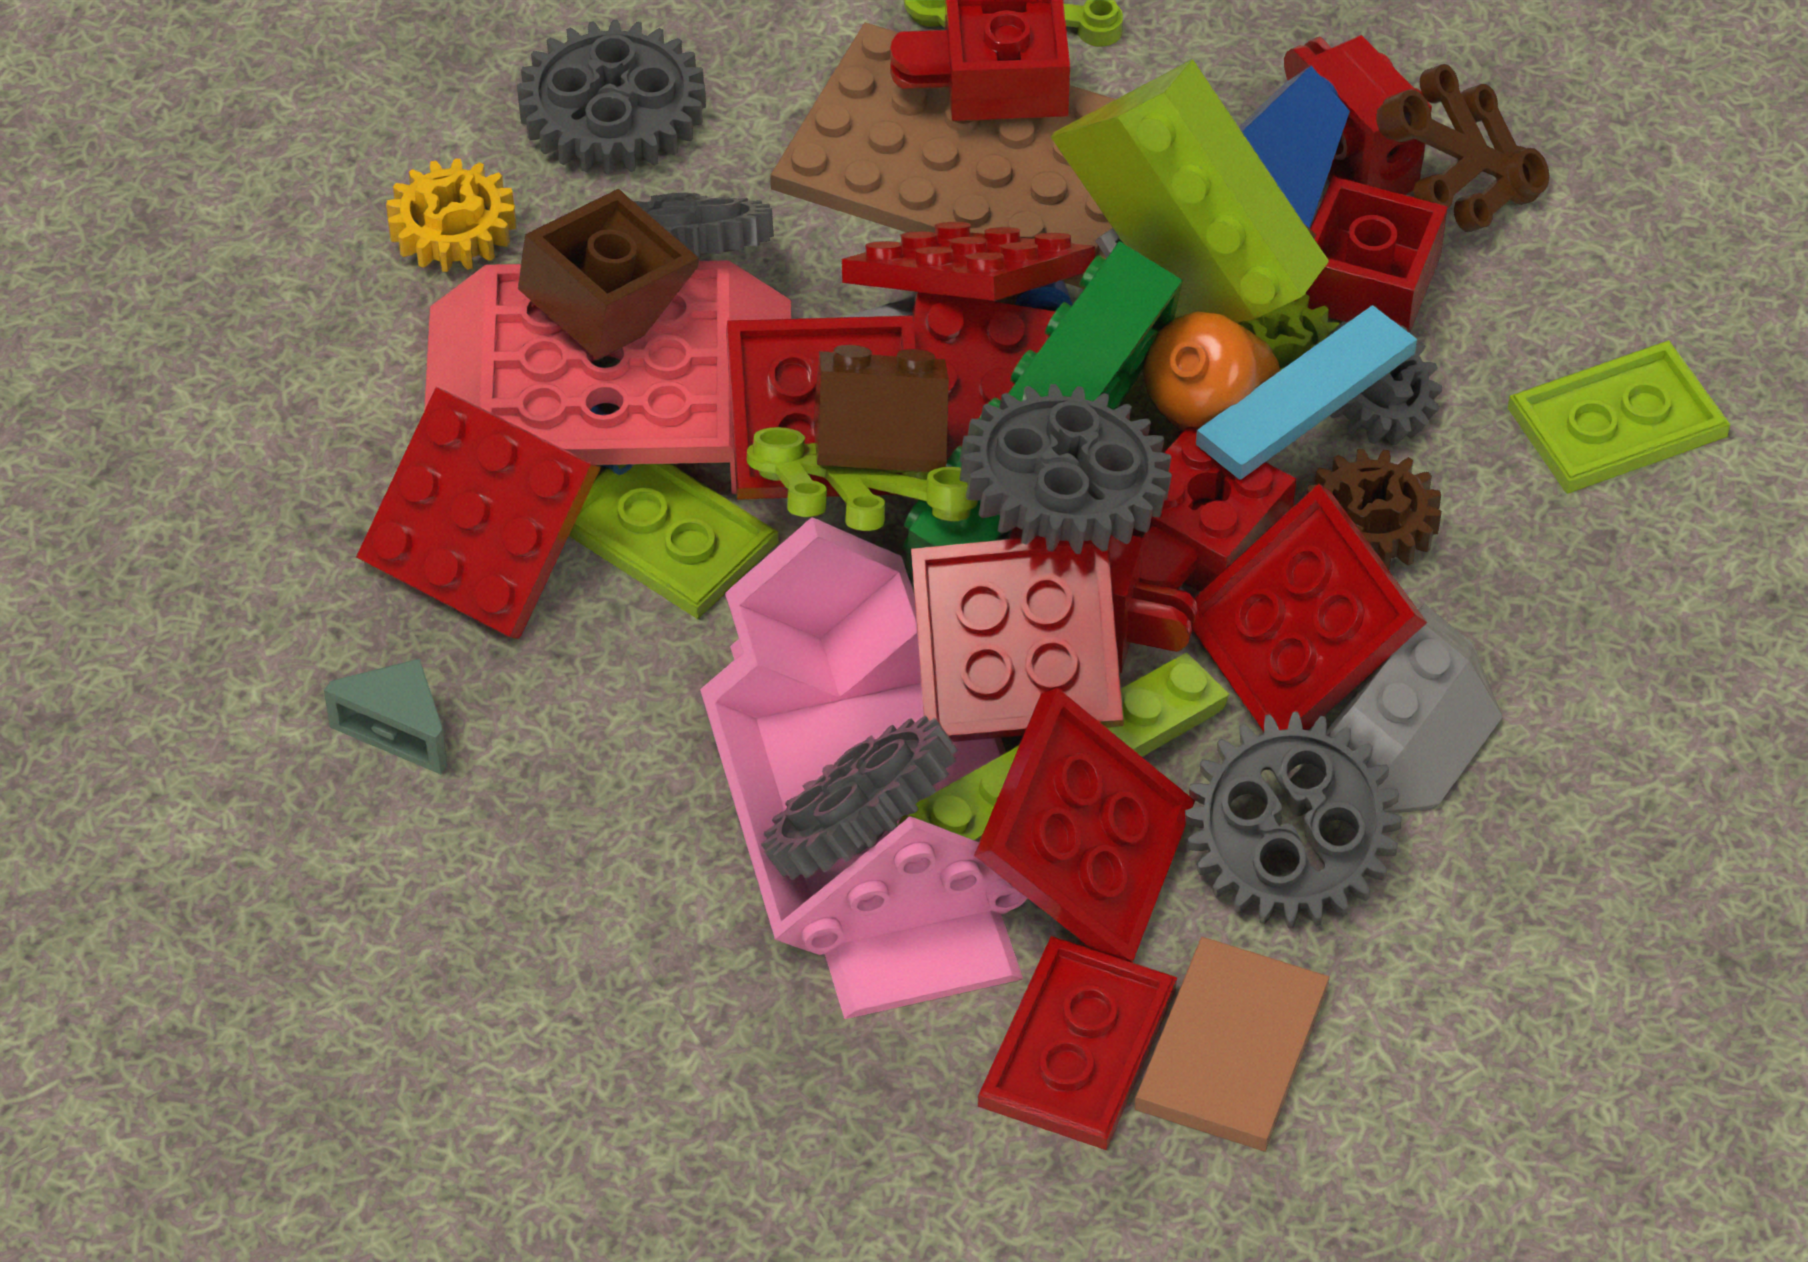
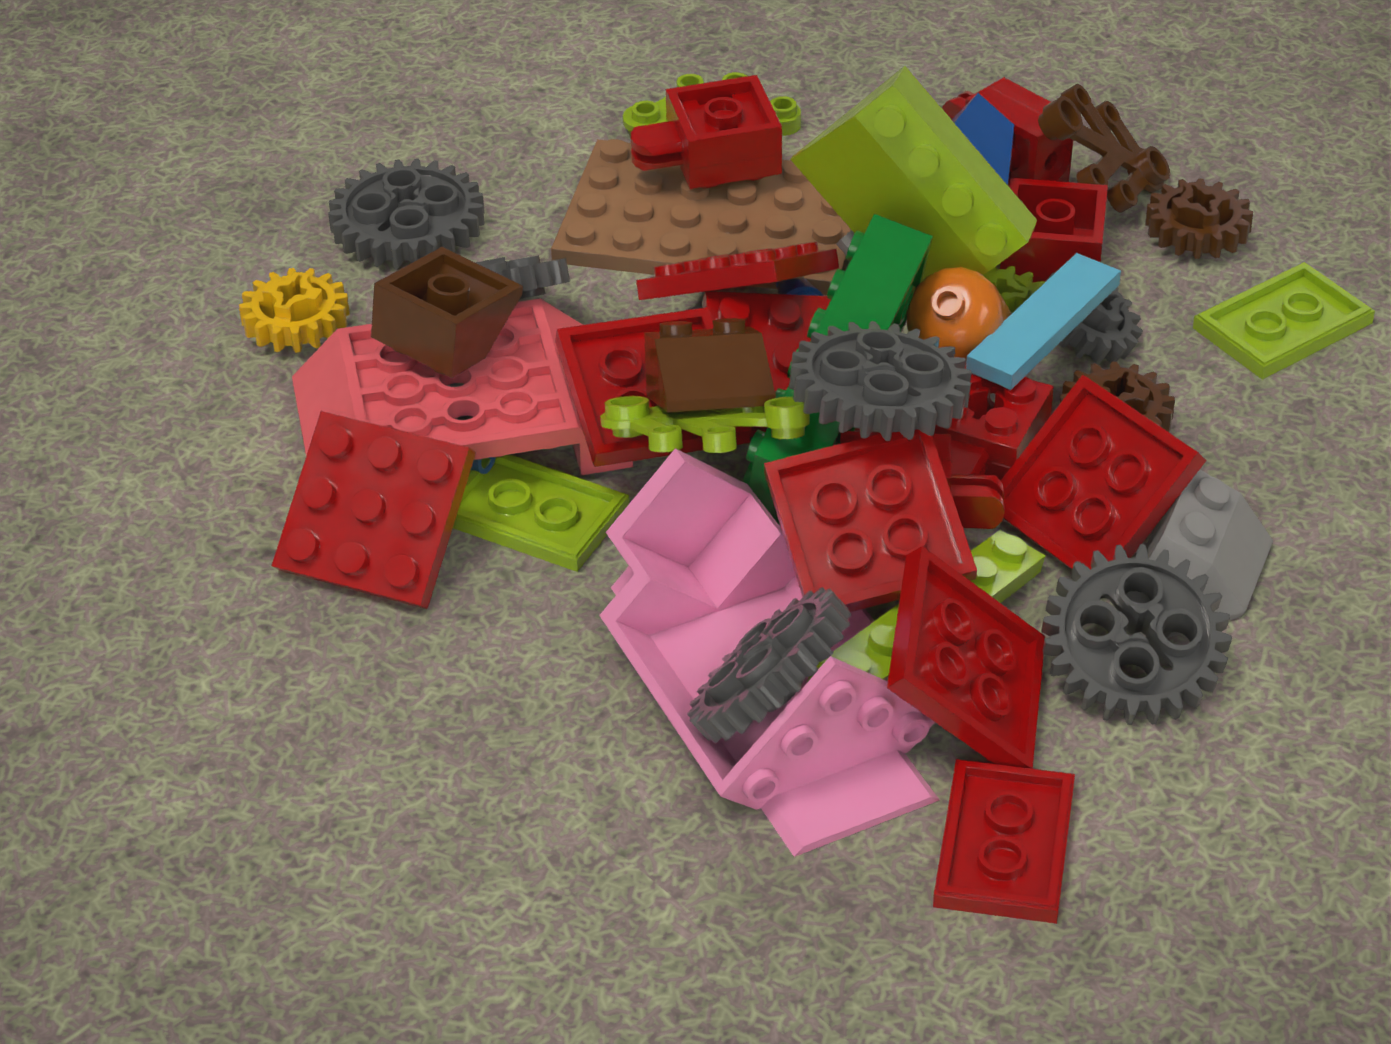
camera: 10 degrees left, 10 degrees down
(390, 711) = (331, 676): sand green slope -> none
(1232, 1043) = (1139, 820): nougat tile -> none
(1559, 258) = (1199, 218): none -> reddish brown gear

